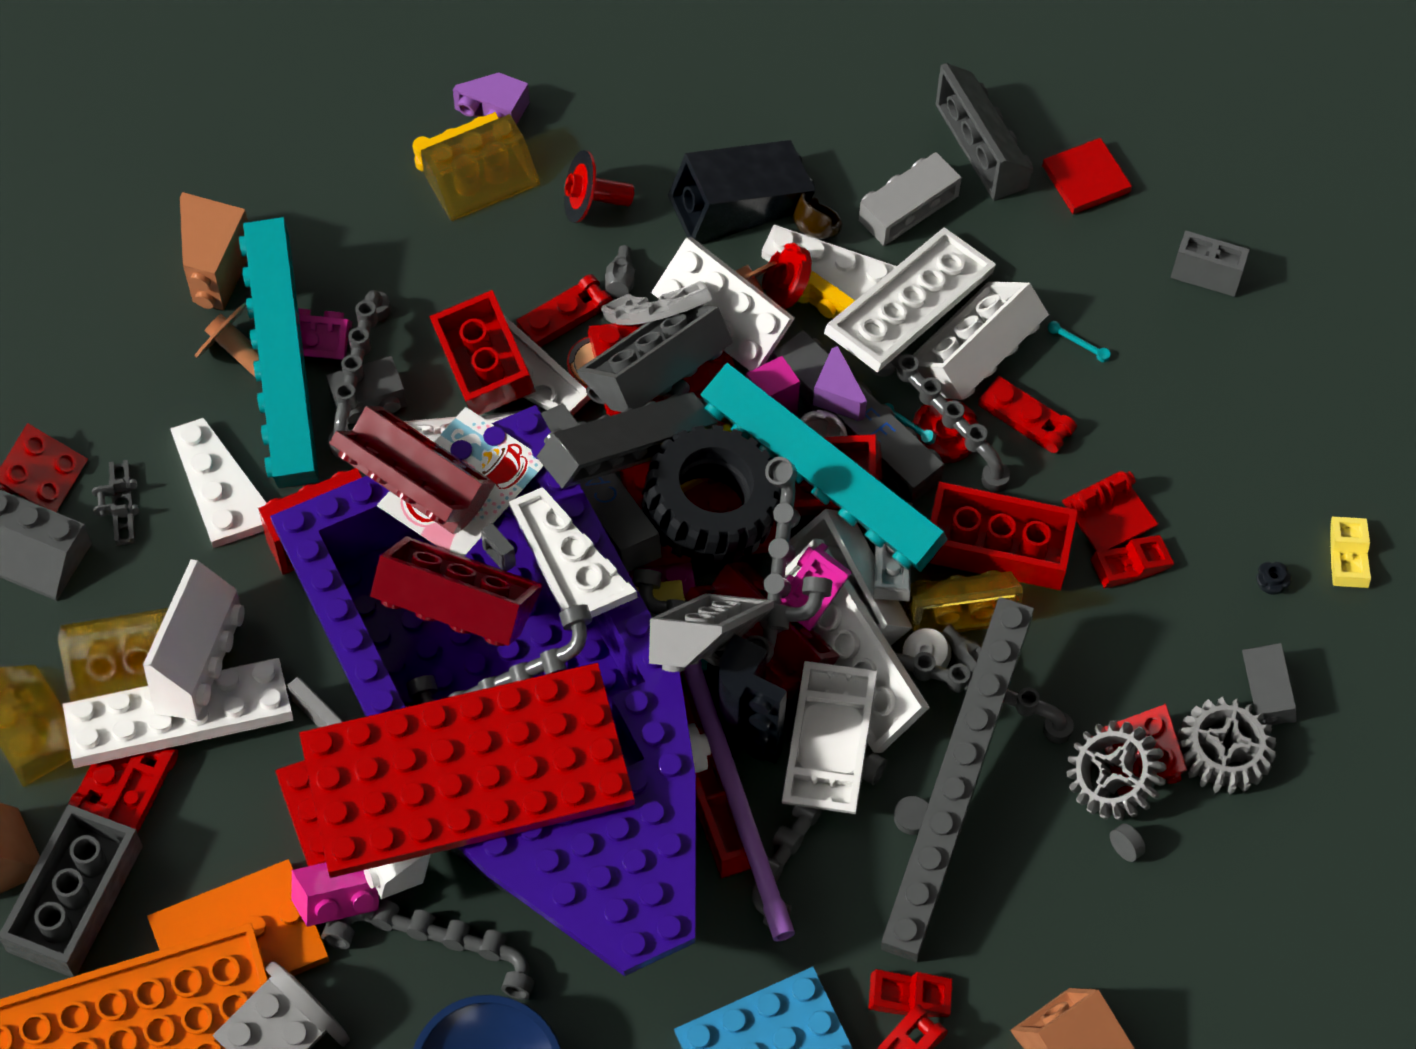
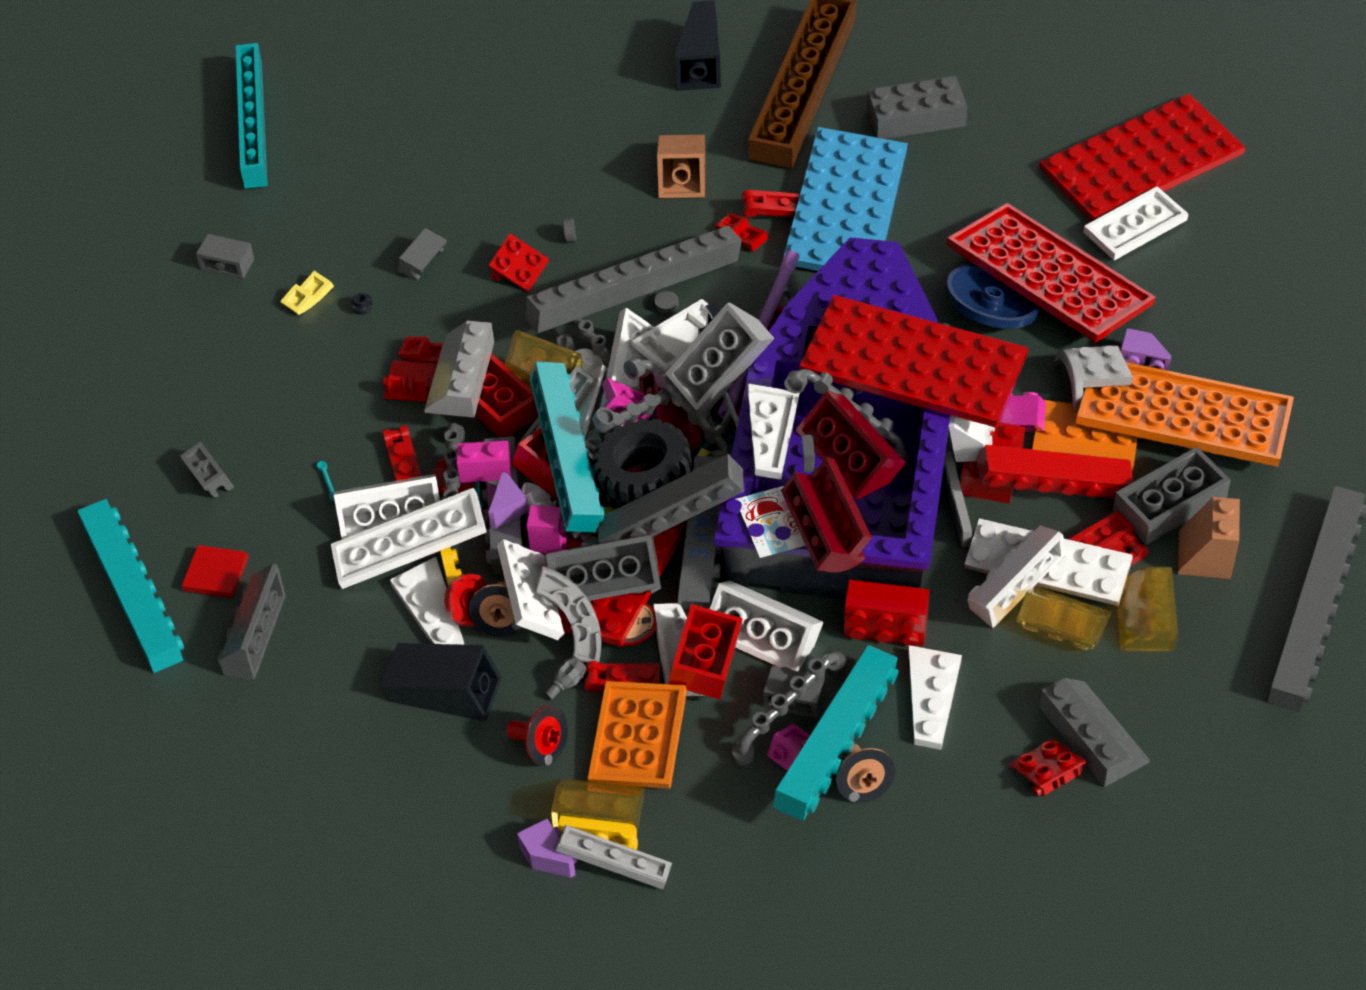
camera: 140 degrees left, 10 degrees down
(119, 511) = (1005, 725): dark grey piece -> none
(211, 249) = (832, 837): nougat slope -> none
(222, 818) = (1053, 471): none -> red brick
(420, 120) = (614, 857): none -> light grey tile
(495, 248) = (638, 734): none -> orange plate
(816, 219) = (411, 629): dark brown hair -> none
(906, 414) = (483, 461): none -> dark pink brick
(909, 198) = (340, 614): light grey brick -> none
(1036, 504) = (461, 370): none -> light grey slope
(1110, 783) = (541, 257): light grey gear -> none
(1152, 106) = (131, 586): none -> teal brick
(1255, 747) = (473, 241): light grey gear -> none

